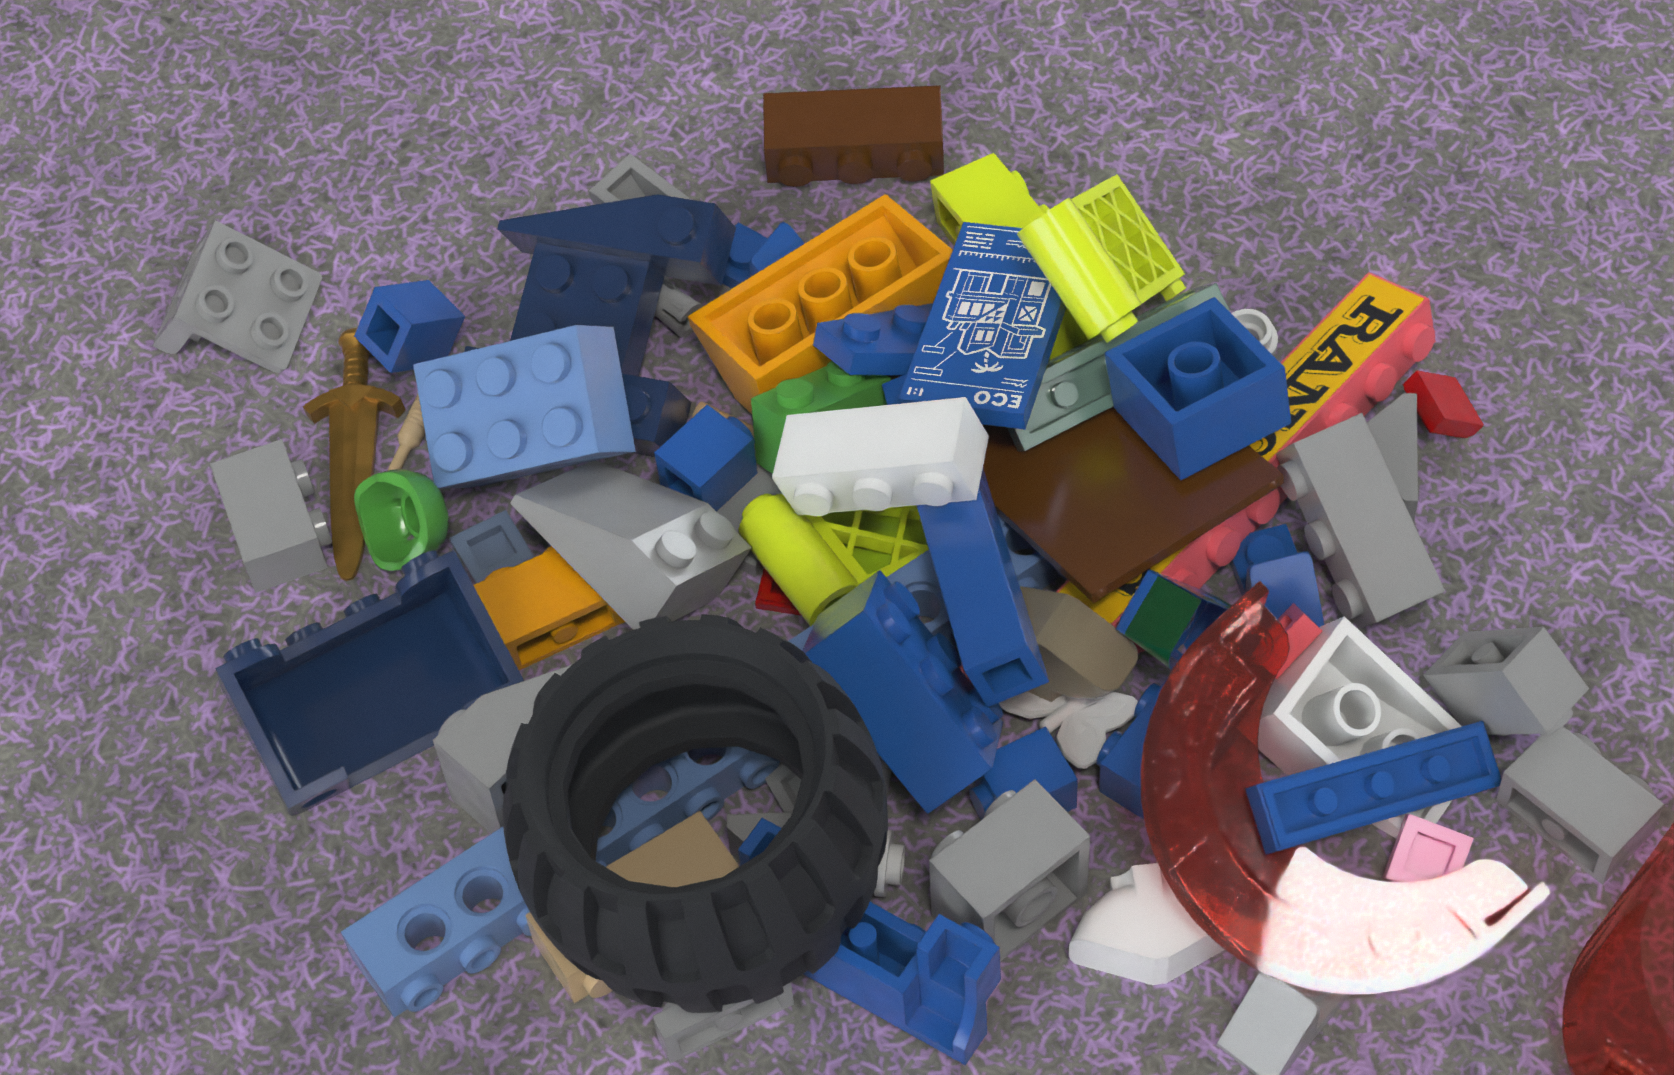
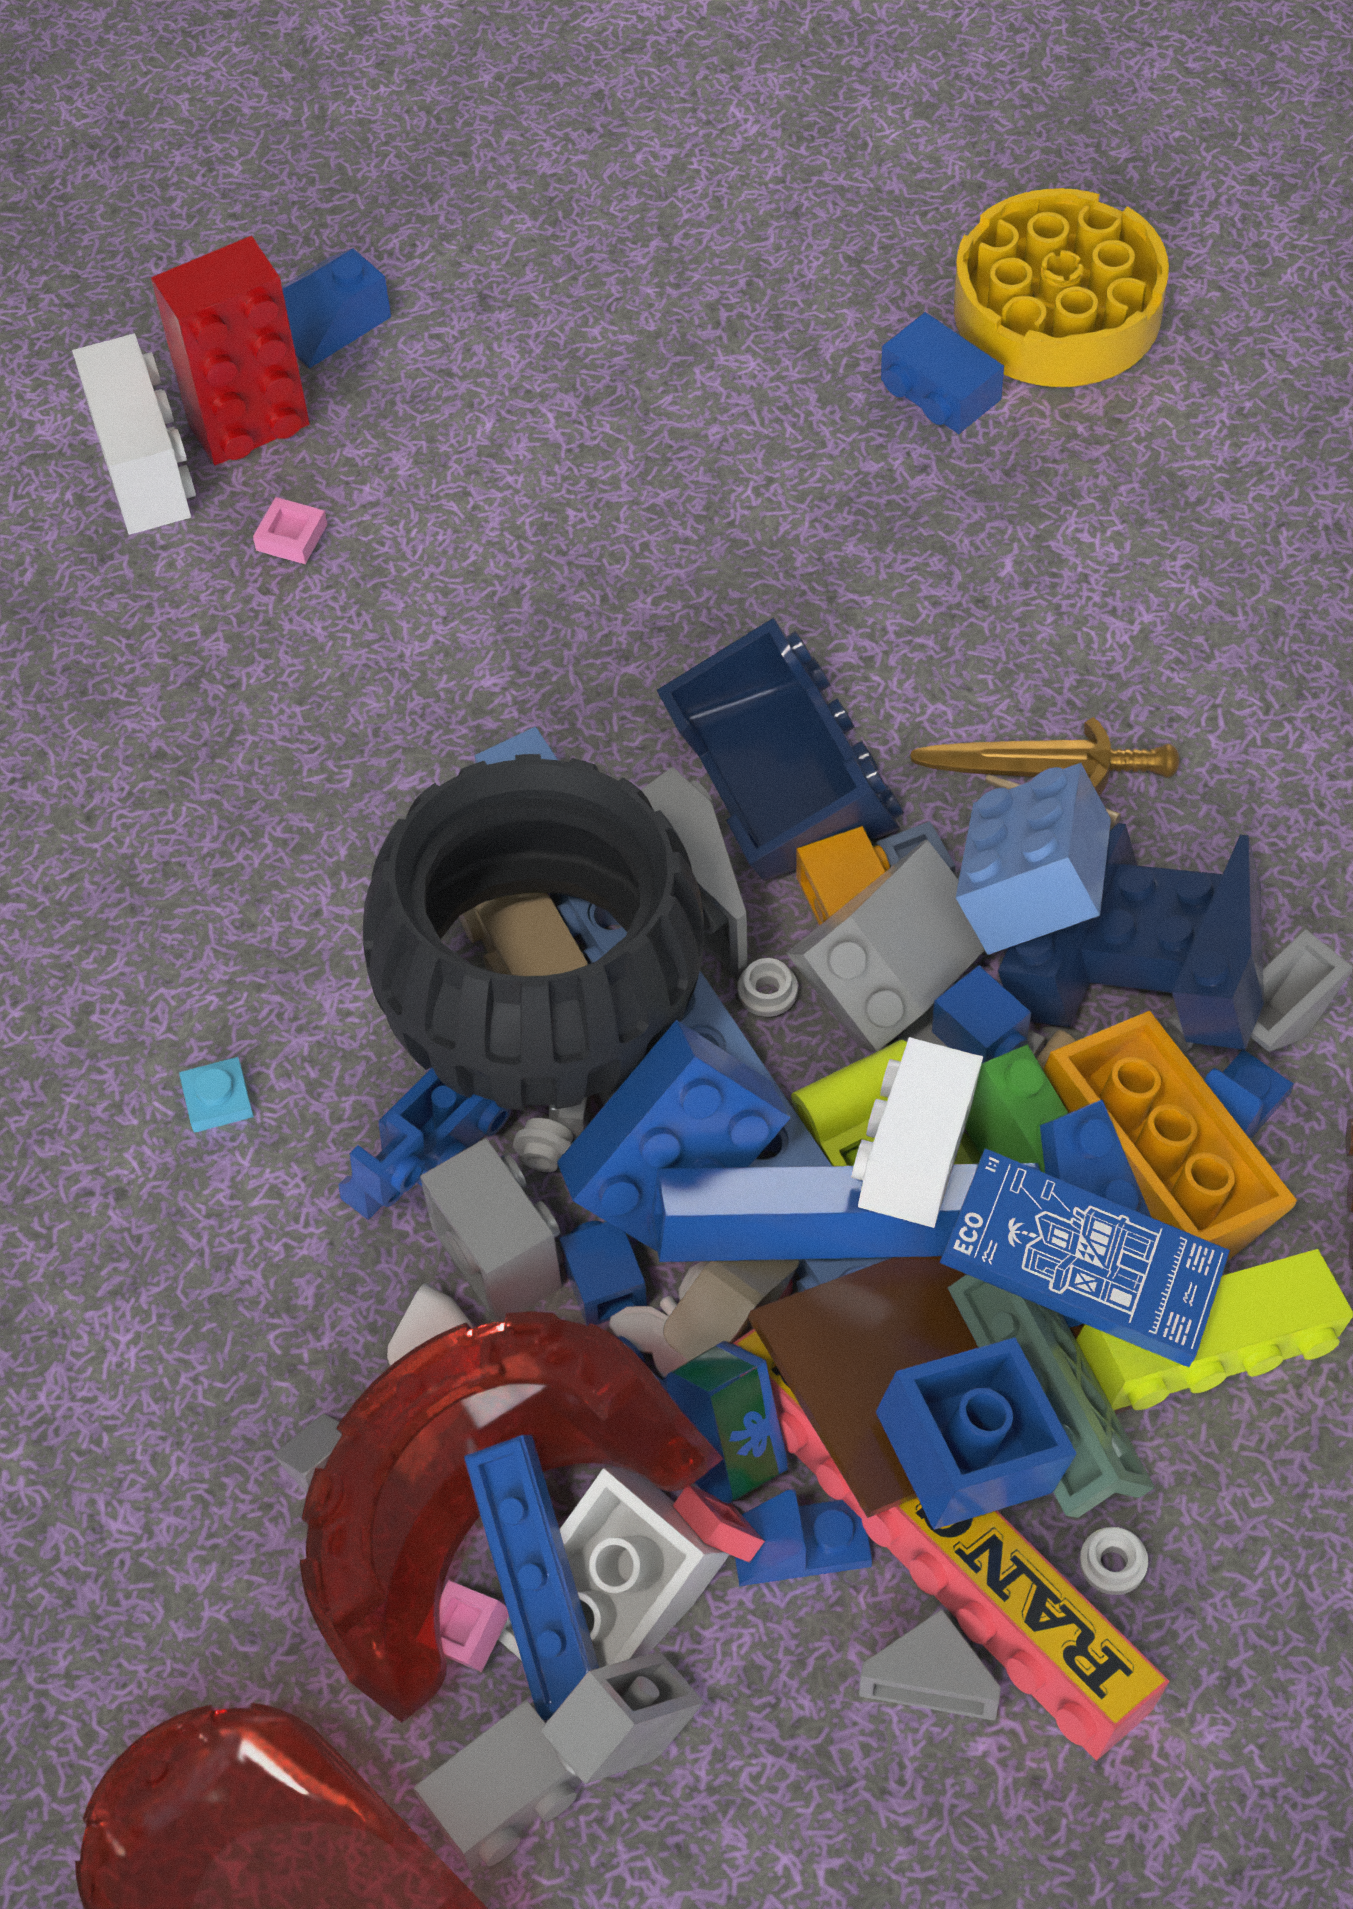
camera: 95 degrees right, 0 degrees up
(240, 299) = (1214, 669): light grey bracket -> none
(269, 515) = (971, 688): light grey brick -> none
(397, 506) = (952, 788): bright green helmet -> none
(408, 325) = (1168, 792): blue brick -> none
(1099, 284) = (1118, 1329): neon yellow piece -> none
(1358, 522) = (836, 1605): light grey brick -> none
(1443, 405) = (1004, 1747): red tile -> none

